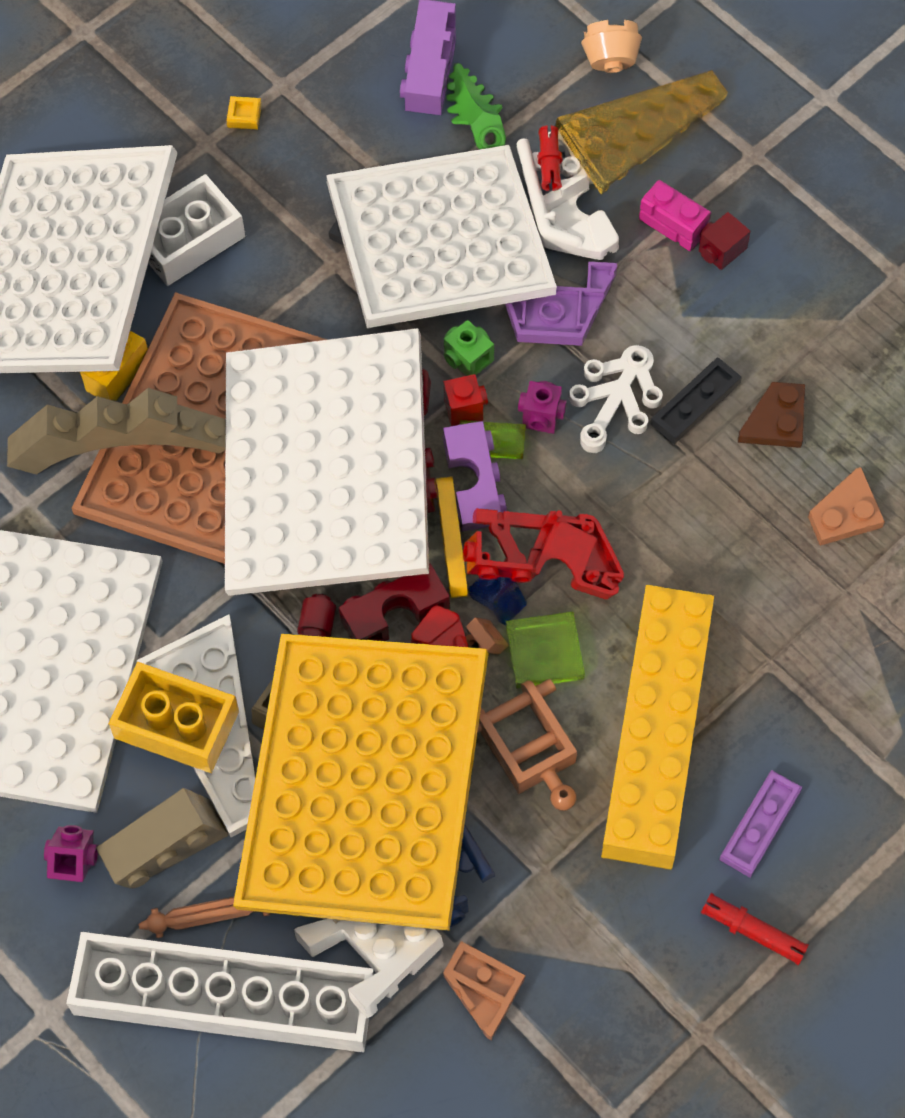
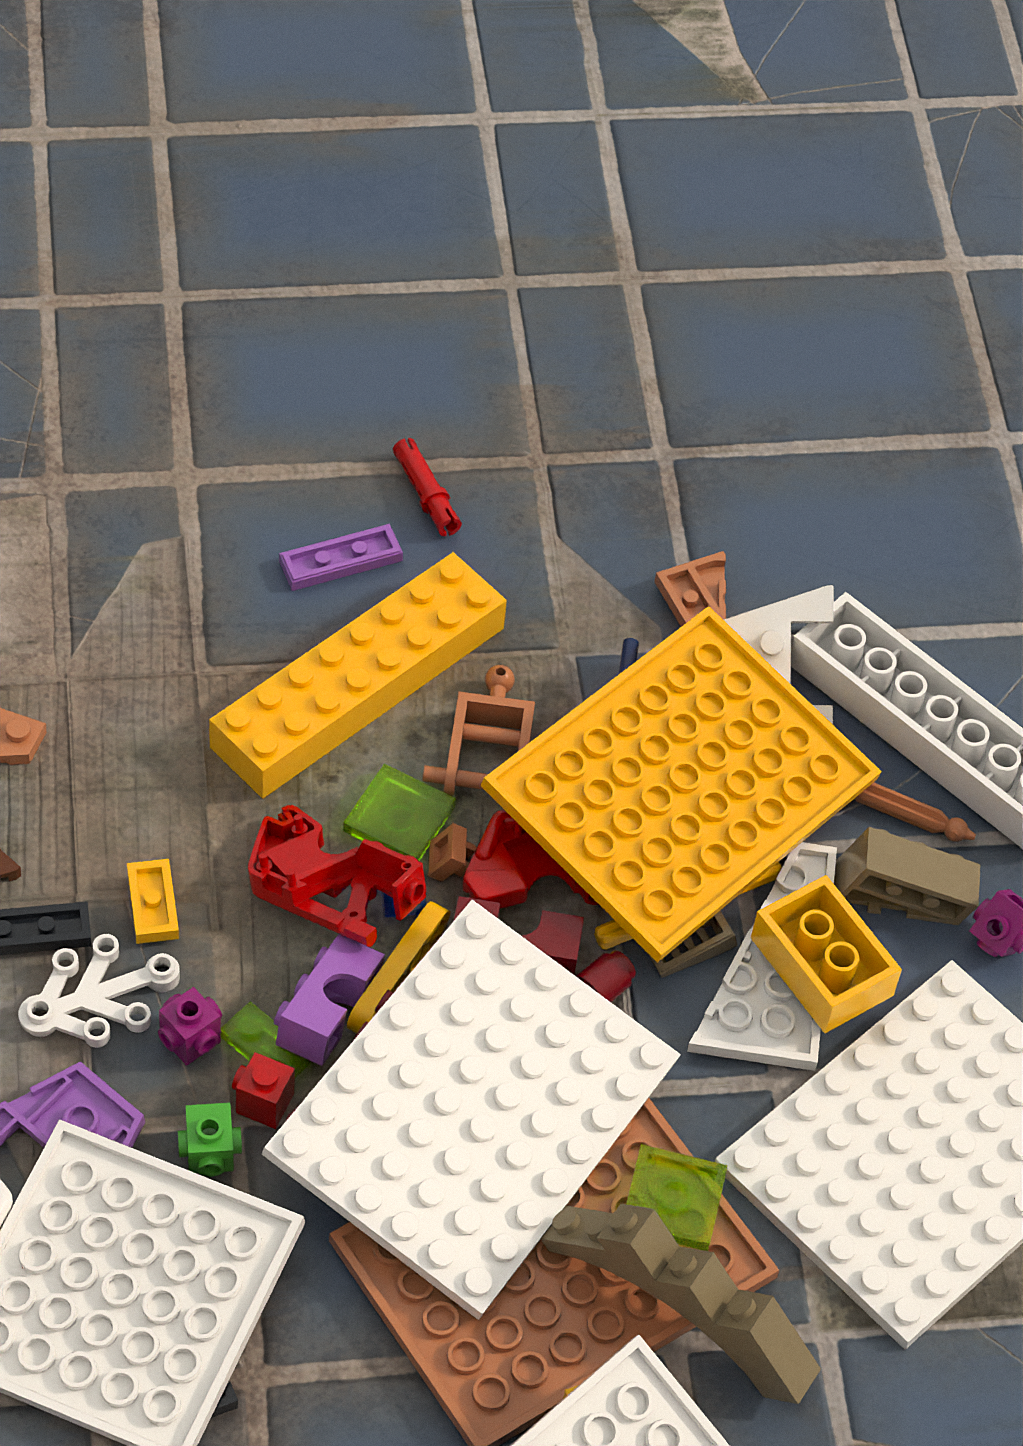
camera: 150 degrees left, 10 degrees down
(165, 502) = (681, 1191): none -> clear neon green tile
(640, 472) = (152, 901): none -> yellow plate

